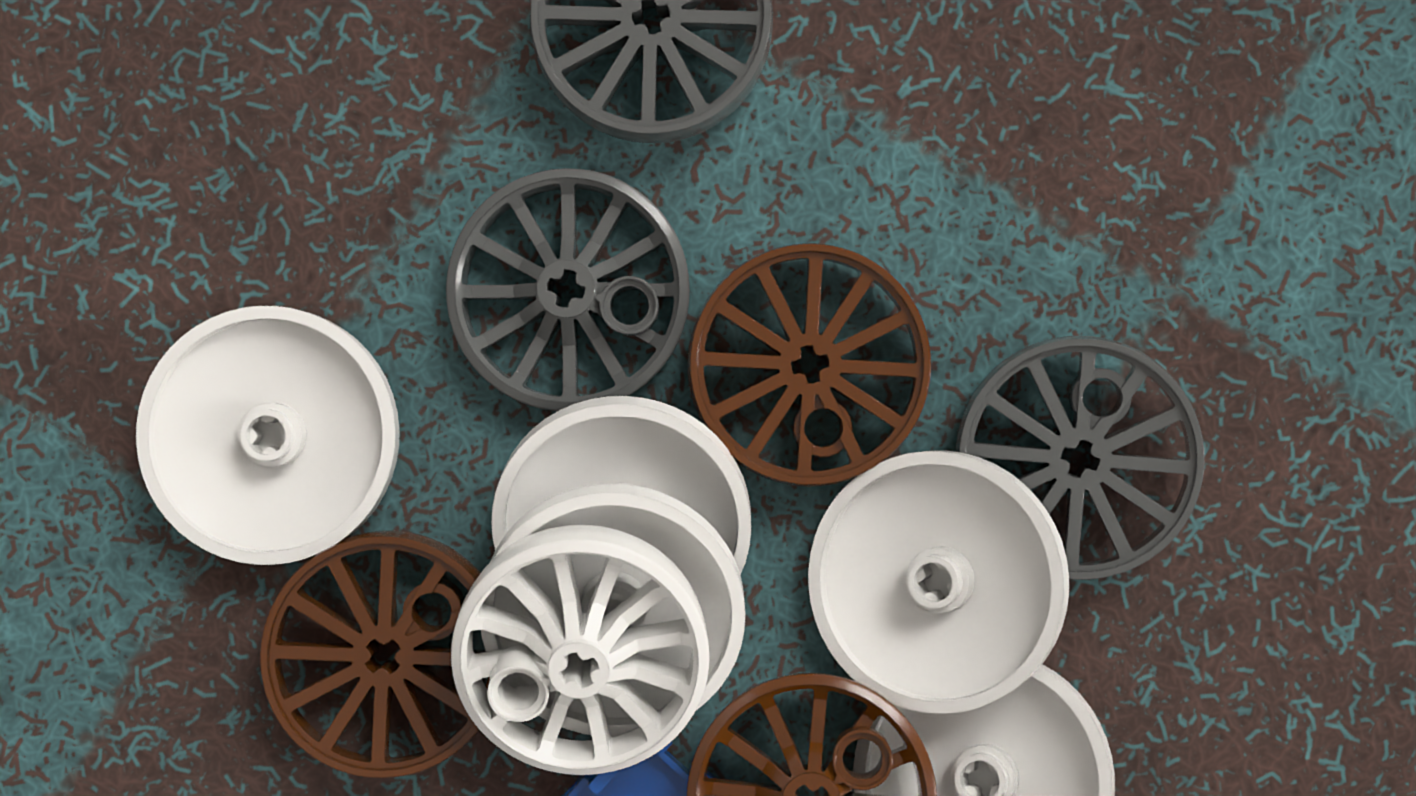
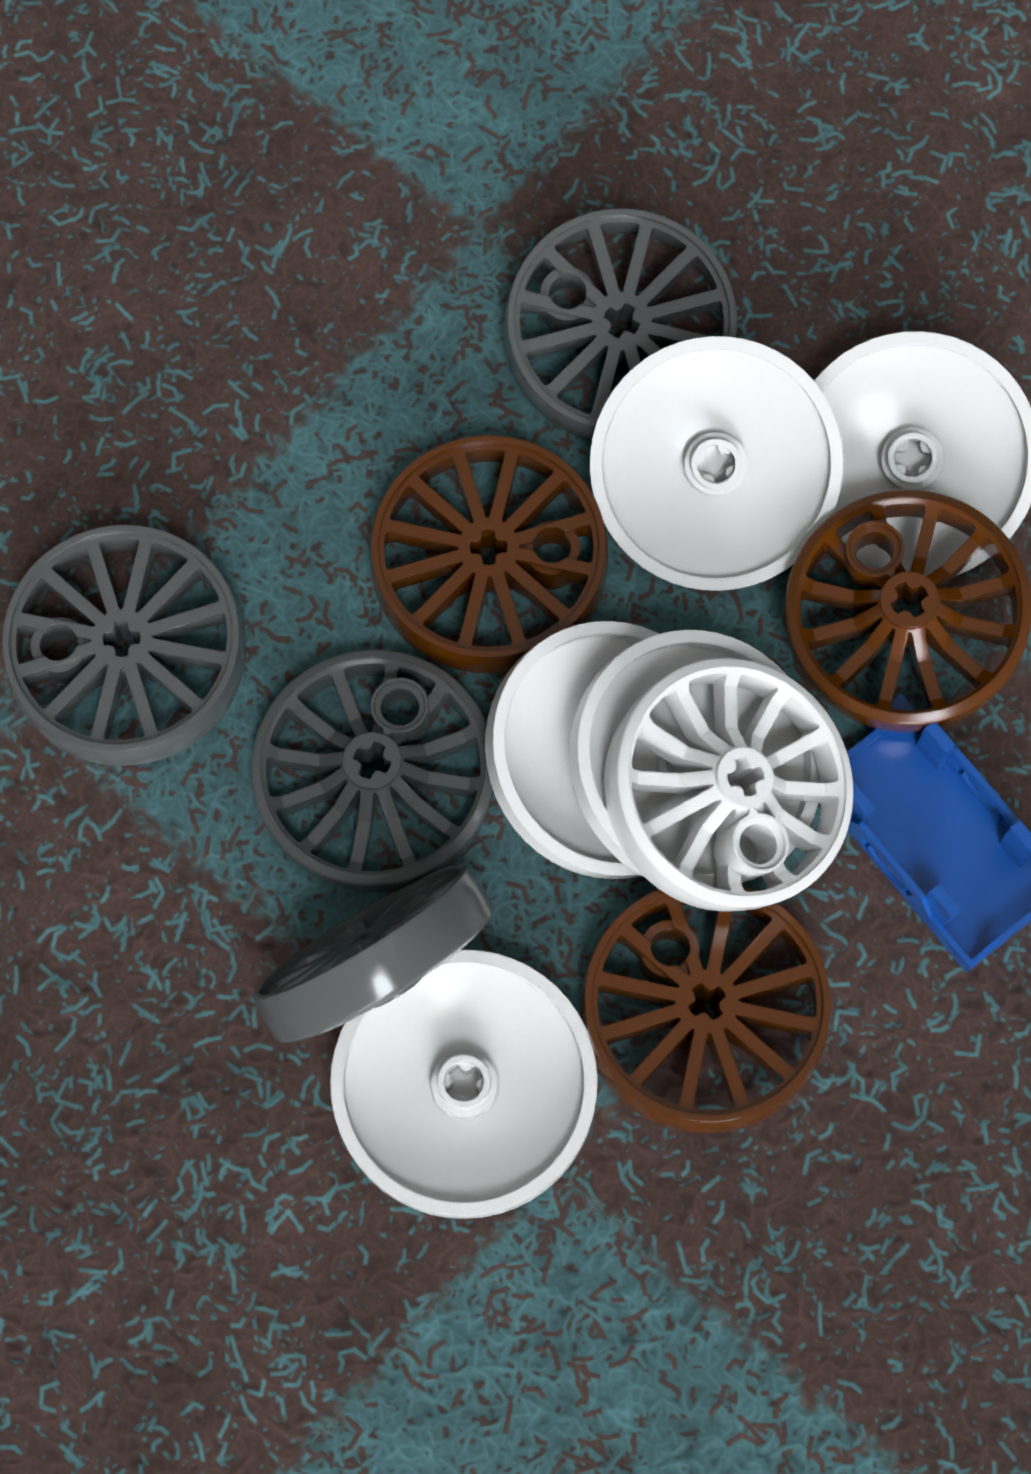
camera: 80 degrees left, 15 degrees down
(352, 329) = (373, 955): none -> dark grey piece

